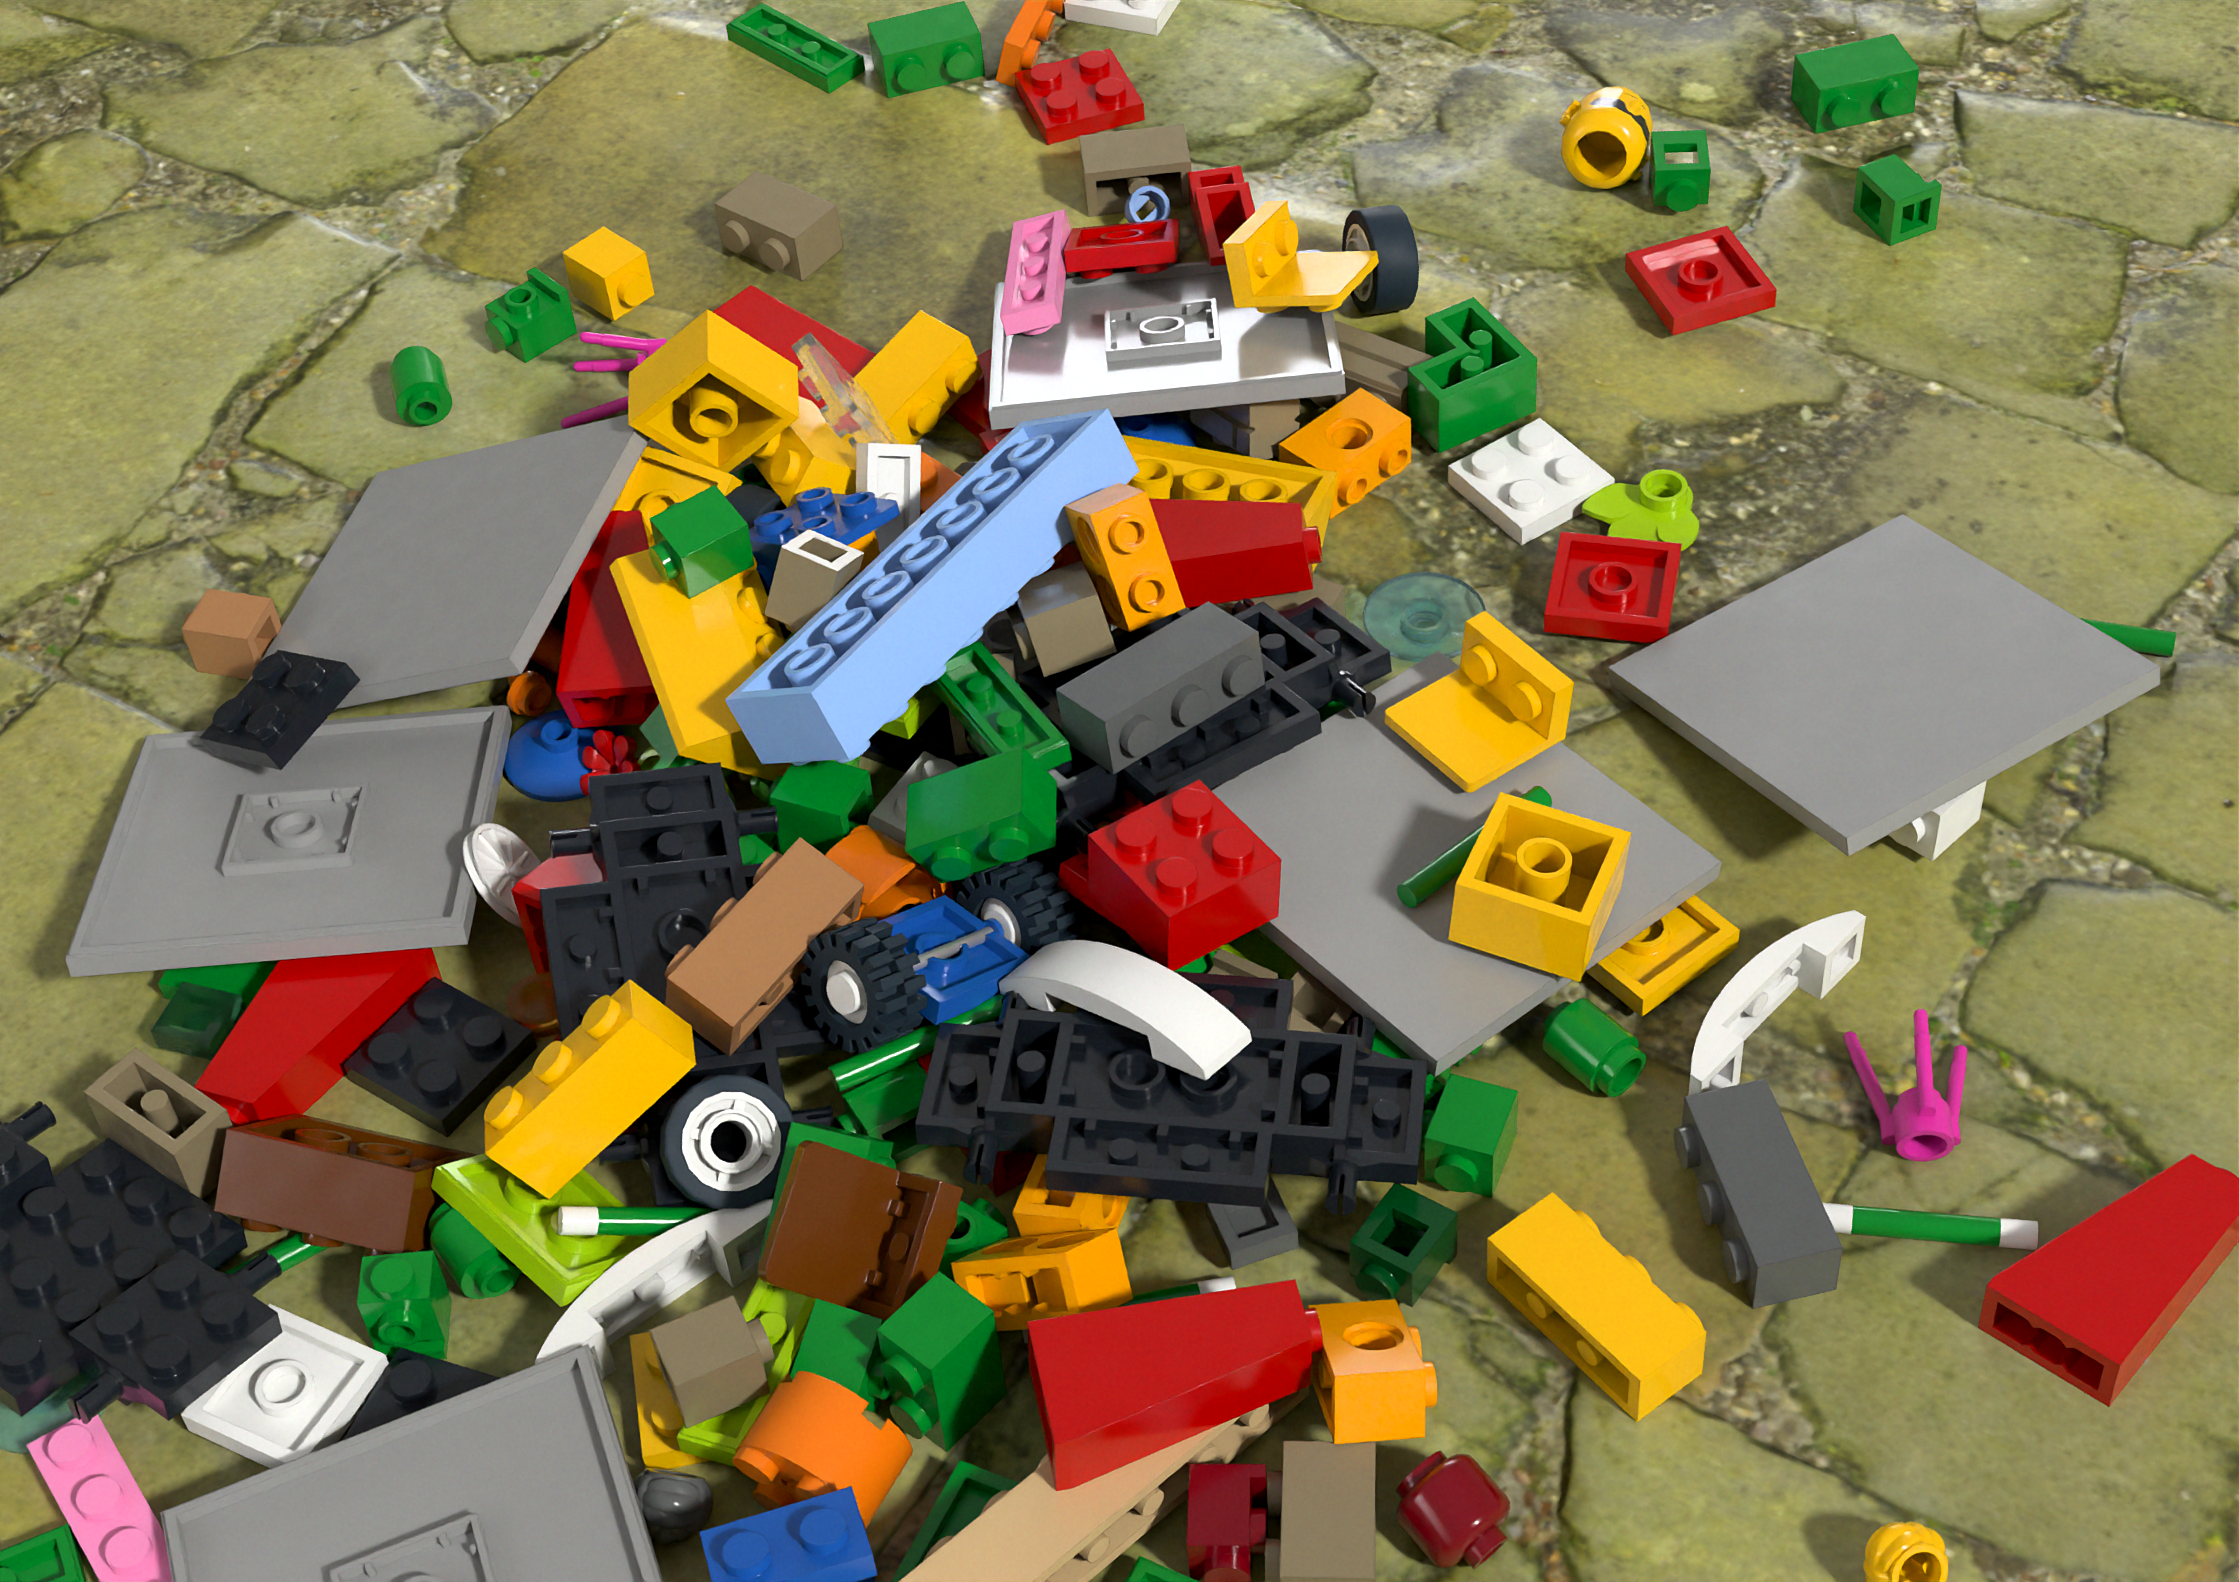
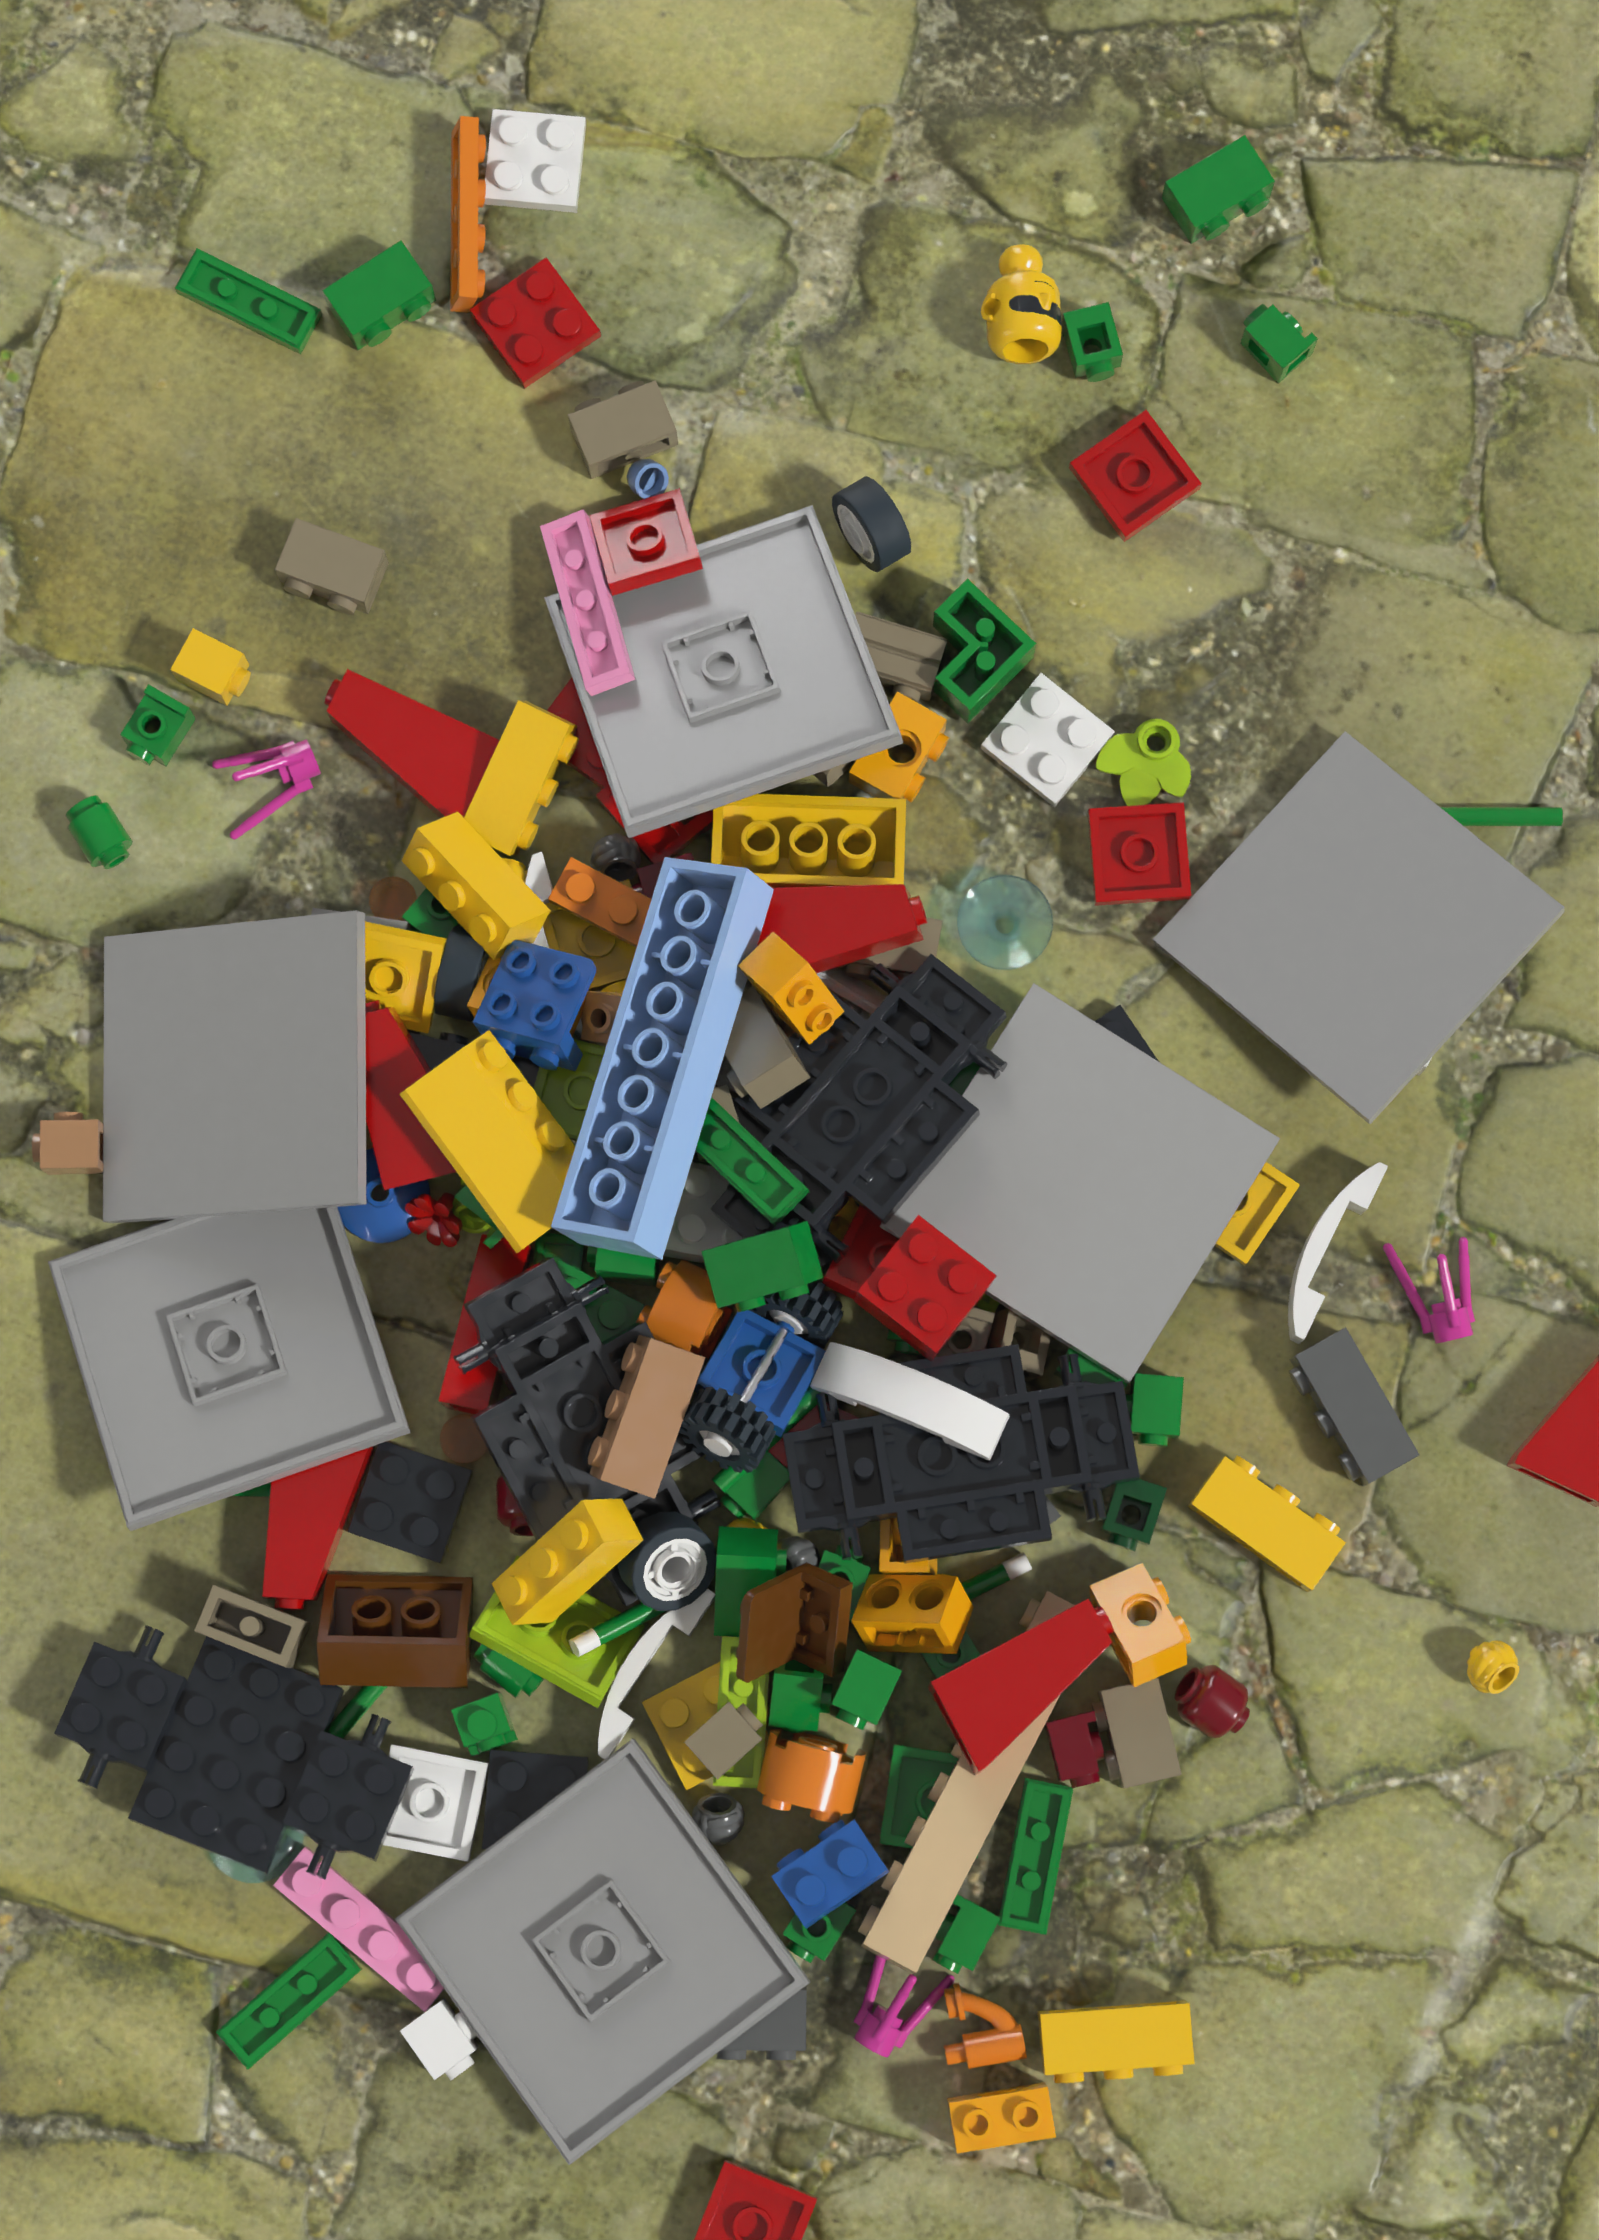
camera: 20 degrees left, 35 degrees up
(198, 1020) = (225, 1522): clear green plate -> none
(278, 708) = (162, 1237): black plate -> none
(495, 865) = (404, 1347): white wheel -> none
(700, 542) = (471, 1074): green brick -> none
(713, 394) = (408, 885): yellow brick -> none
(809, 576) = (566, 1077): dark tan brick -> none
(847, 403) = (508, 843): clear plate -> none
(893, 474) = (569, 922): white plate -> none
(1160, 687) = (862, 1121): dark grey brick -> none
(1218, 206) = (723, 490): red slope -> none
(1273, 276) = (819, 586): yellow bracket -> none
(1452, 861) = (1110, 1182): green bar -> none
(1488, 712) = (1086, 1060): yellow bracket -> none
(1539, 886) = (1171, 1230): yellow brick -> none
(1593, 1047) = (1219, 1309): green brick -> none
(1933, 1226) = (1464, 1398): green bar -> none

